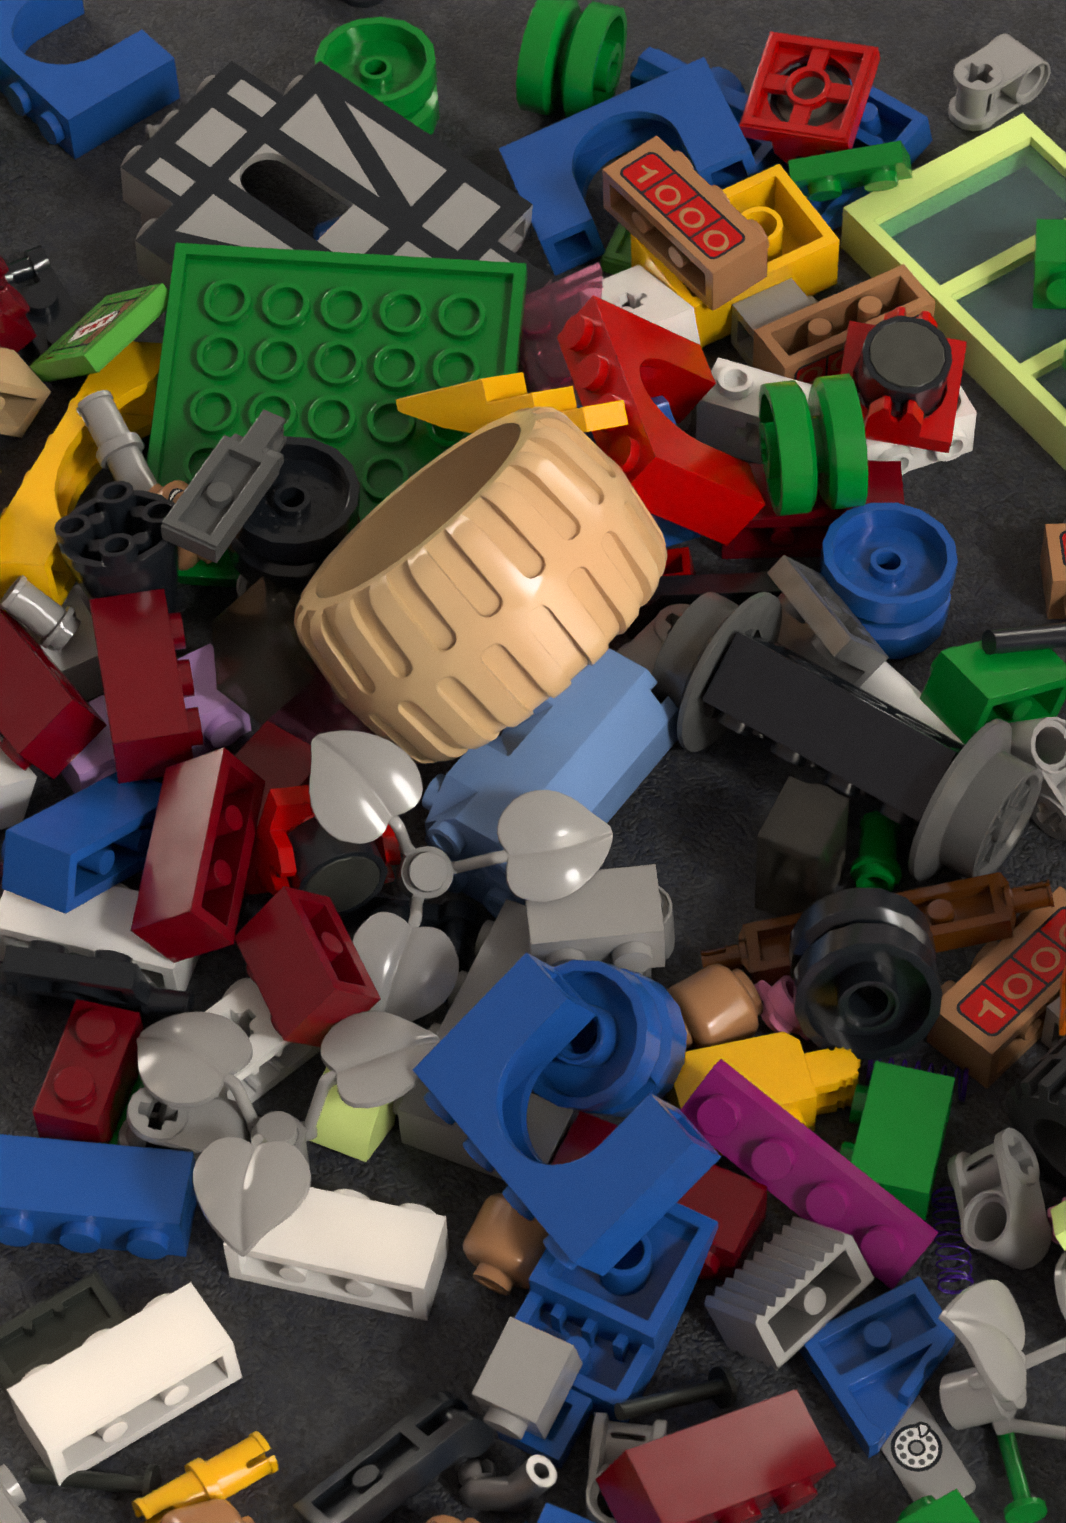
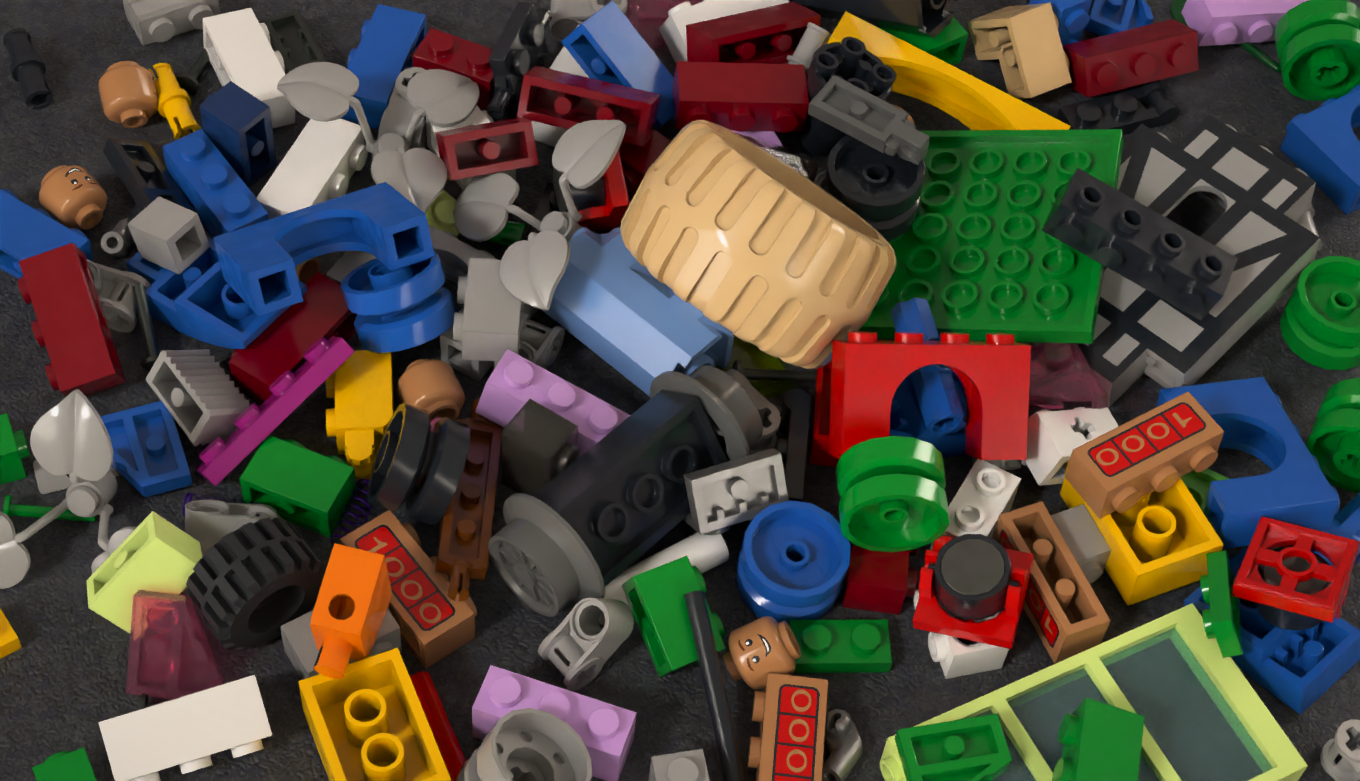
camera: 90 degrees right, 0 degrees up
(102, 333) = (1059, 106): bright green tile -> none
(117, 446) = (952, 105): light grey pin -> none
(294, 1342) = (240, 131): none -> dark blue brick
(389, 211) = (1140, 244): none -> black brick
(404, 1359) = (211, 185): none -> blue brick
(484, 400) = (923, 289): yellow slope -> none
(719, 859) = (518, 380): none -> lavender brick
(980, 562) = (842, 646): none -> green plate
(1015, 593) = (761, 649): none -> medium nougat head

